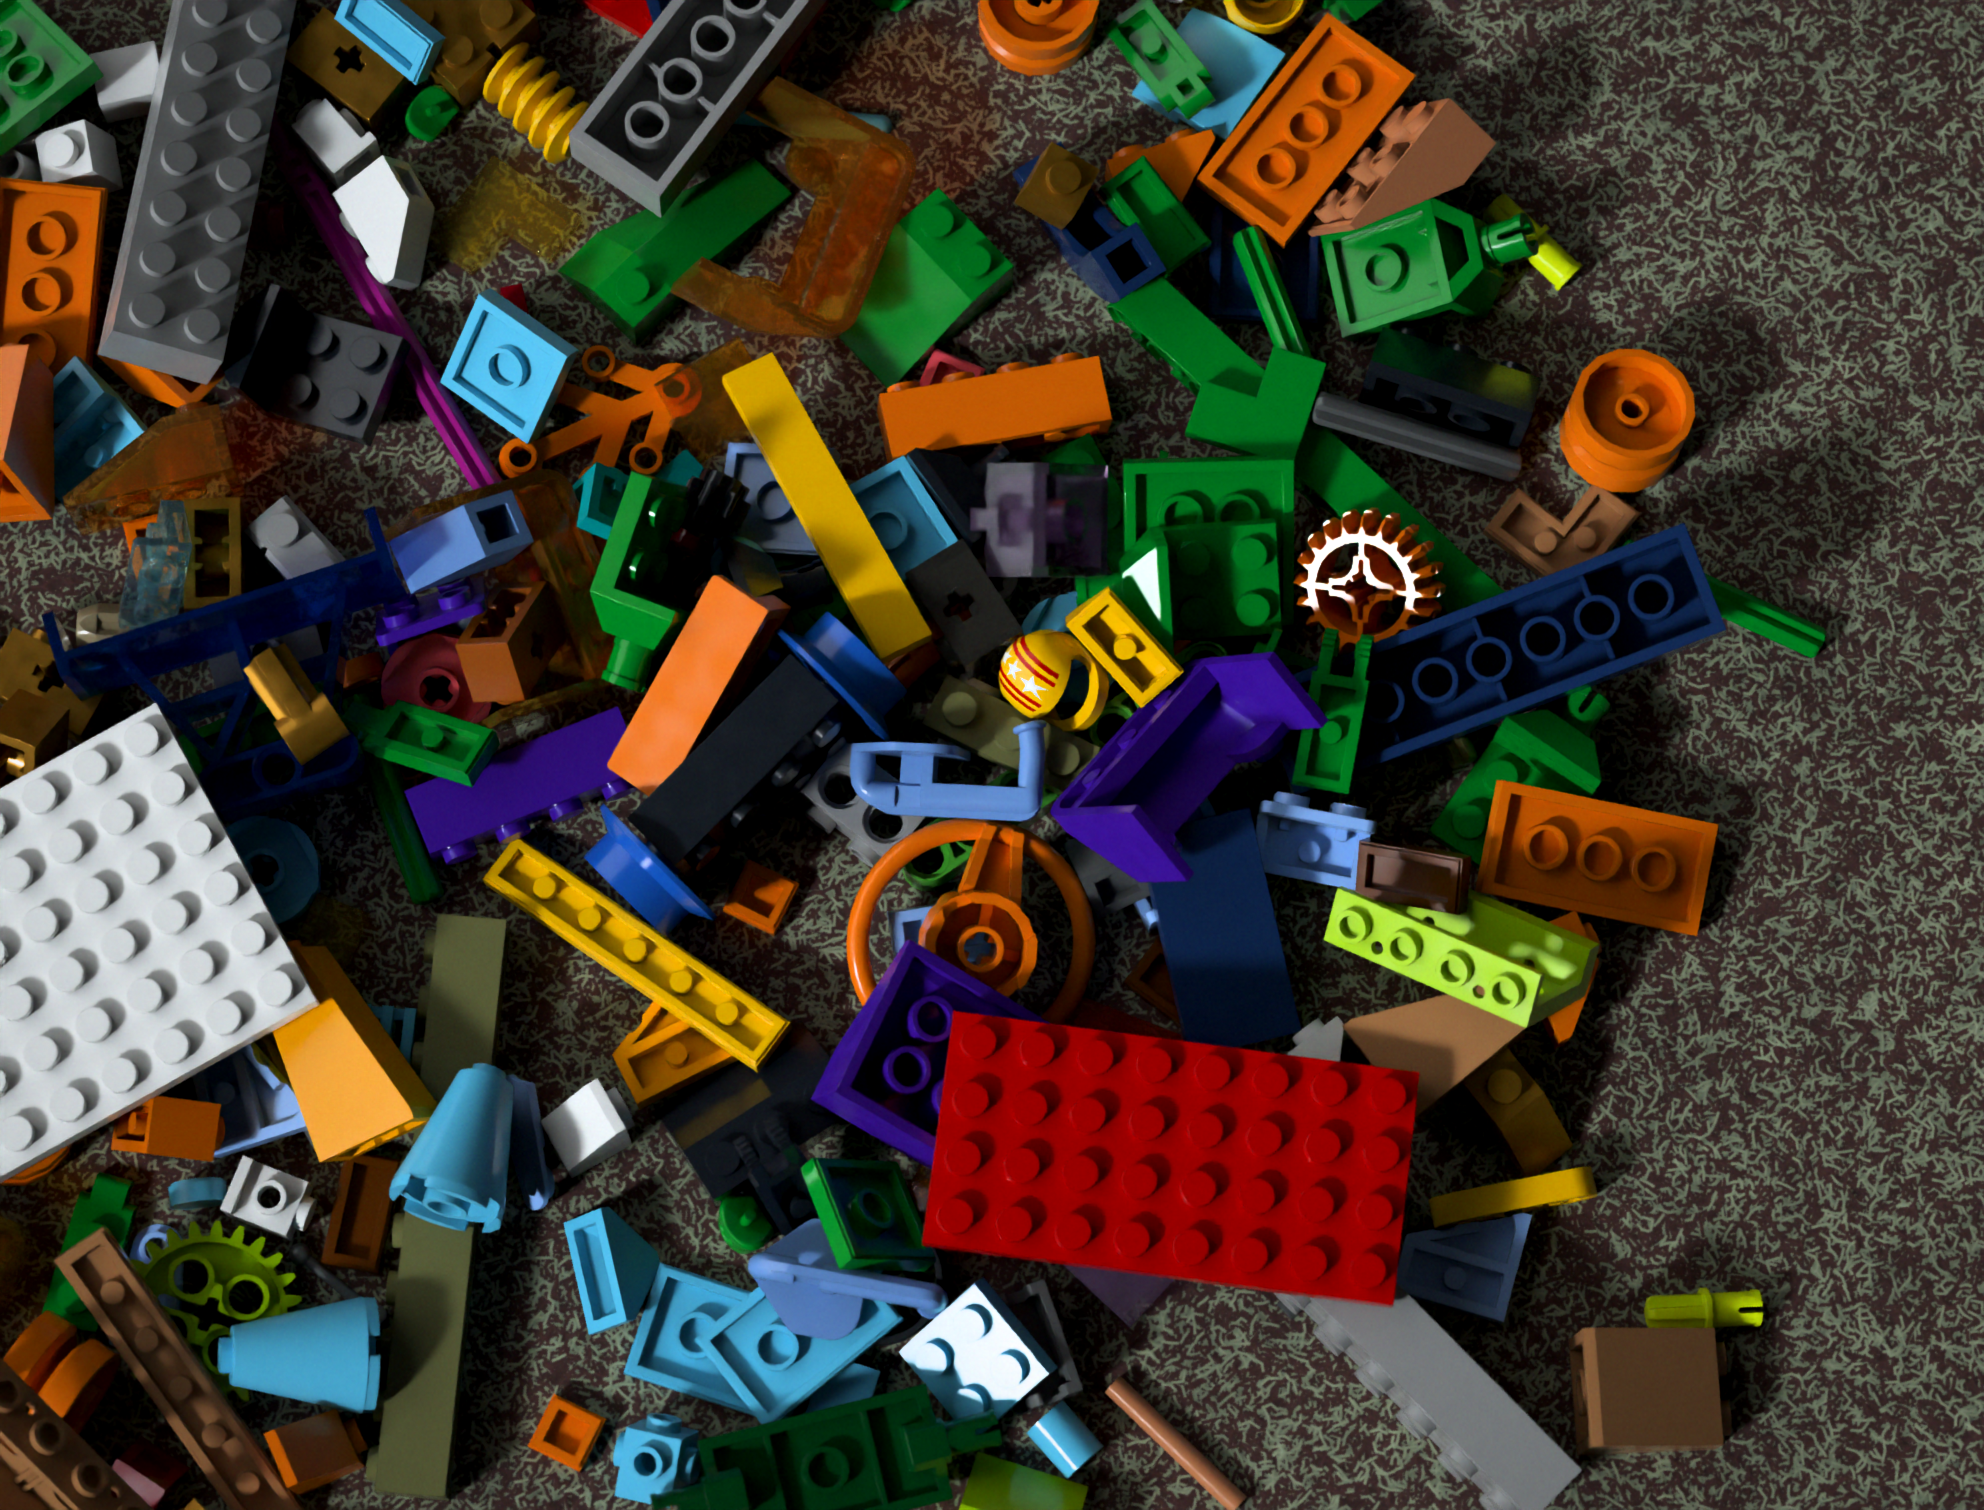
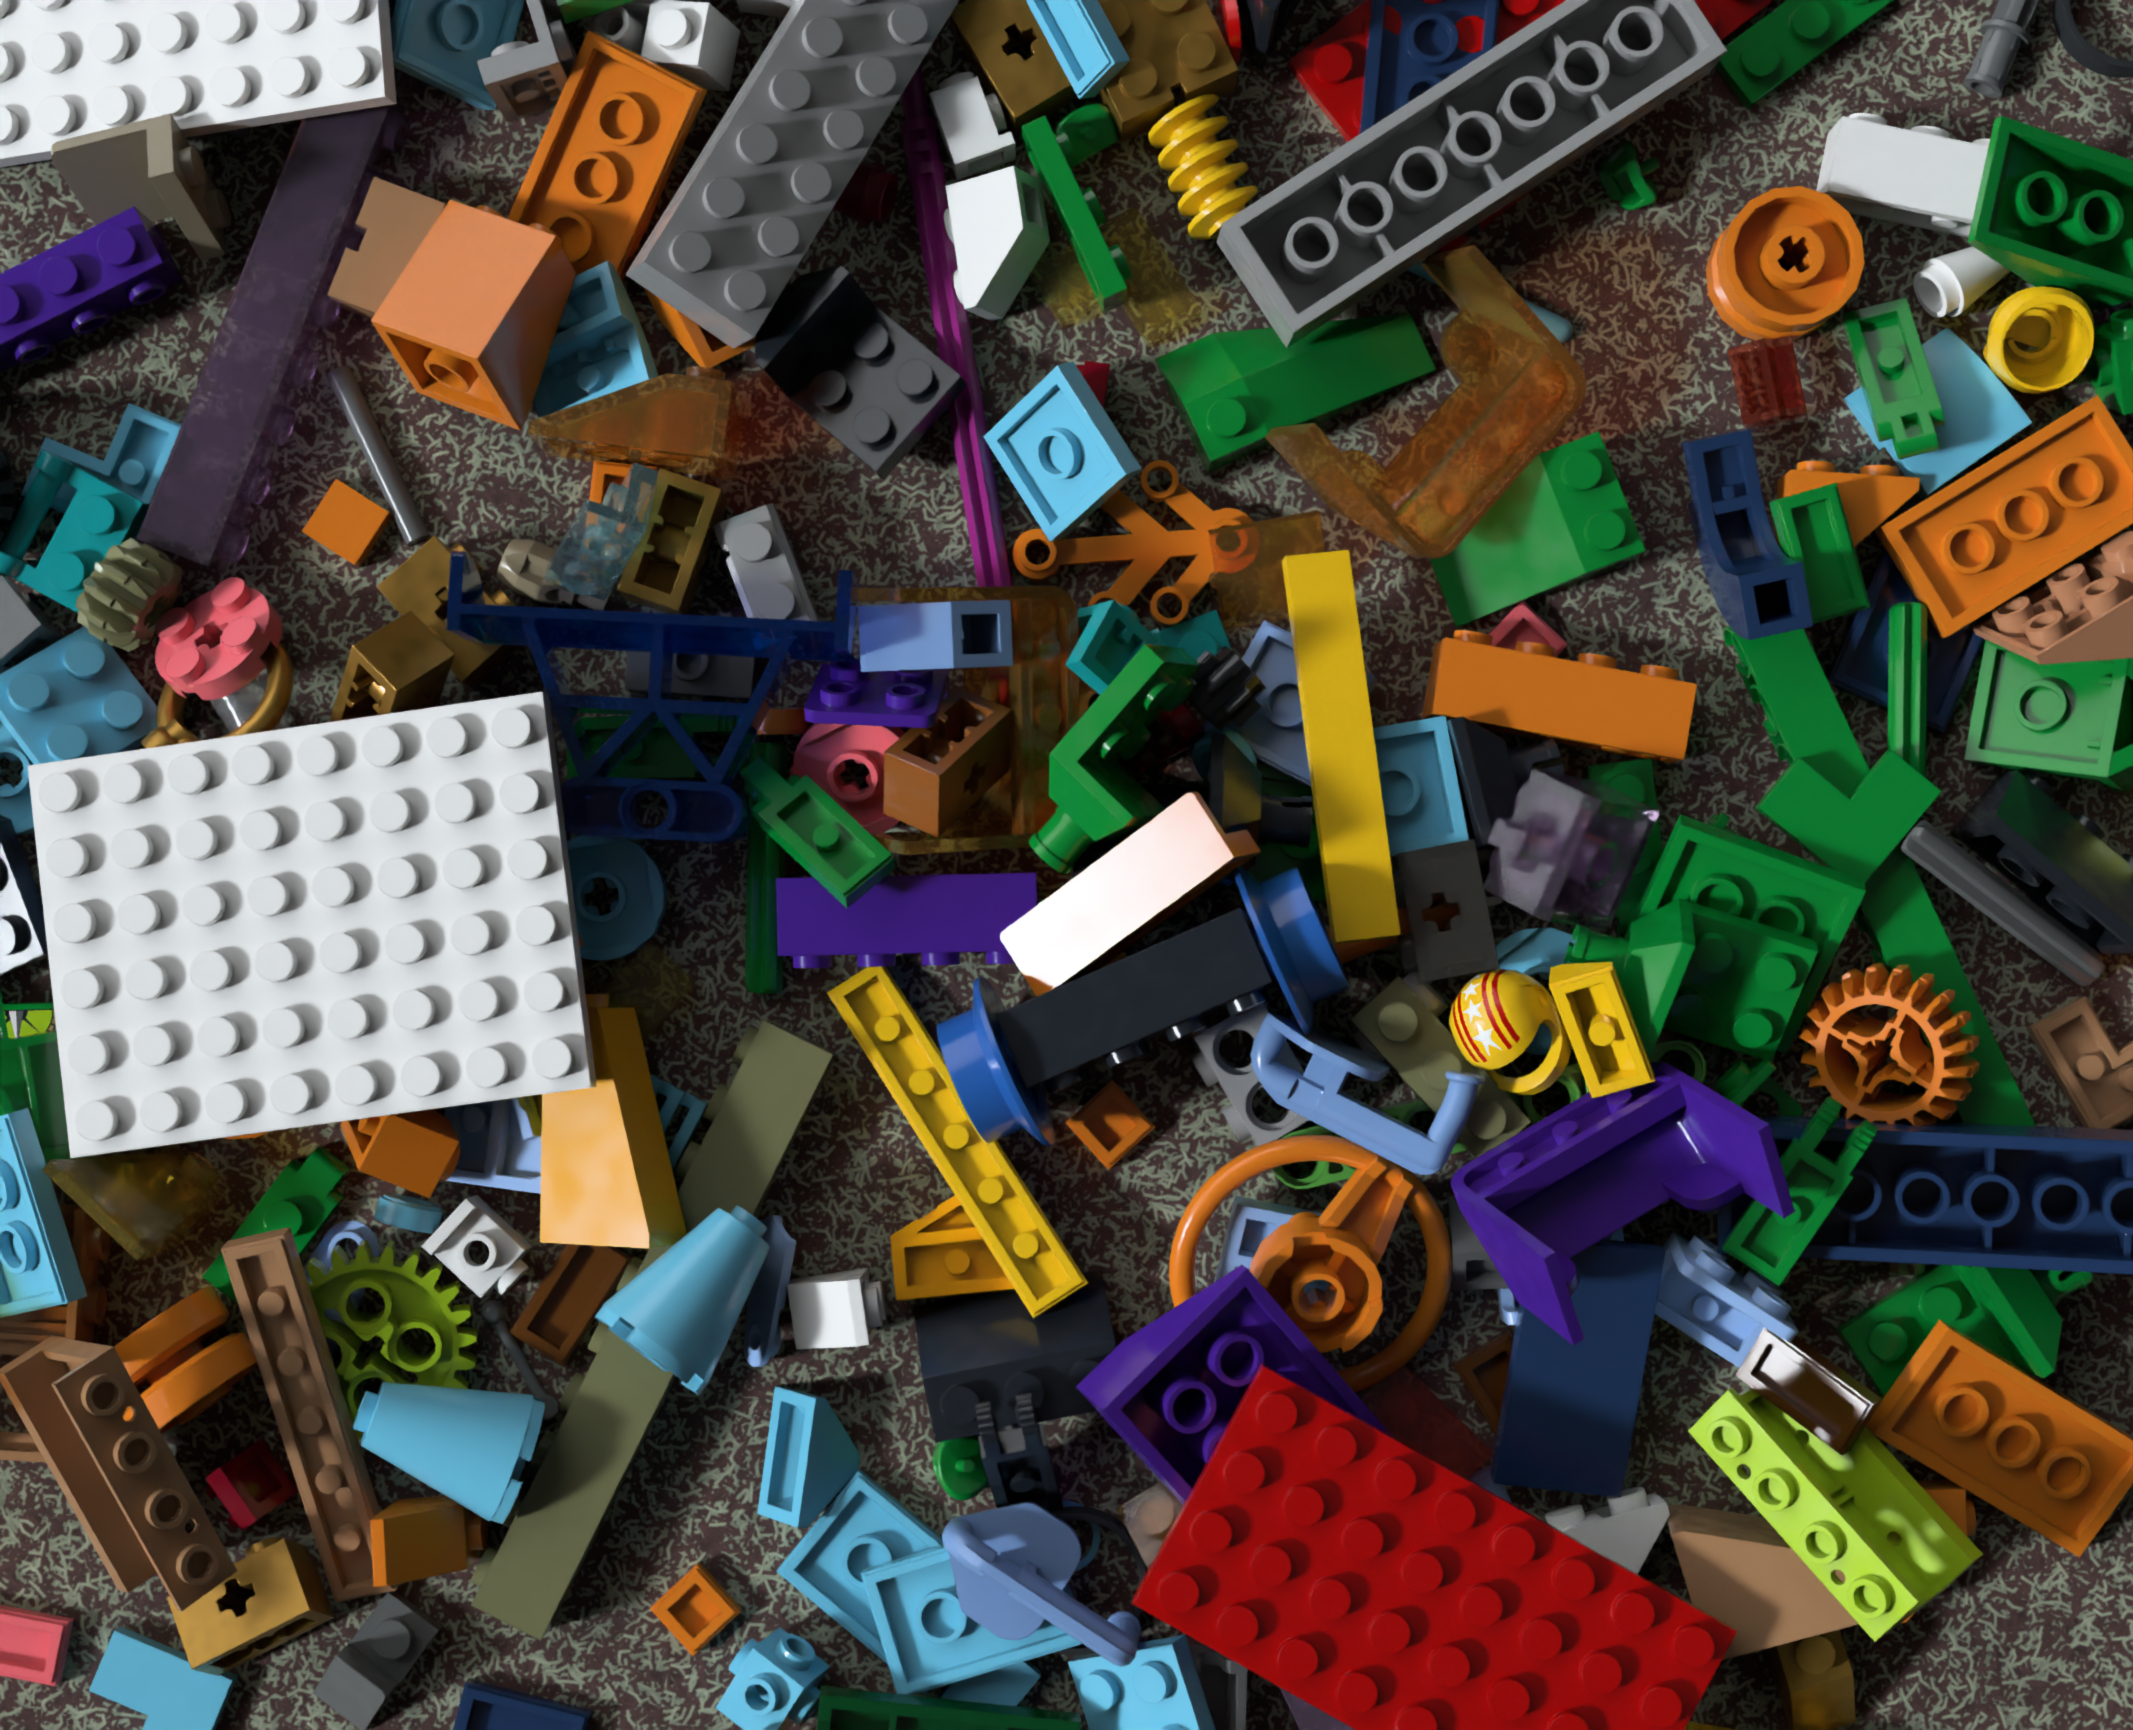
camera: 25 degrees right, 10 degrees up
(301, 713) = (692, 770): pearl gold piece -> none
(448, 175) = (1077, 213): none -> green plate
(867, 1214) = (1088, 1527): green tile -> none
(1057, 186) = (1729, 482): pearl gold brick -> none
(1063, 102) = (1767, 382): none -> clear red piece

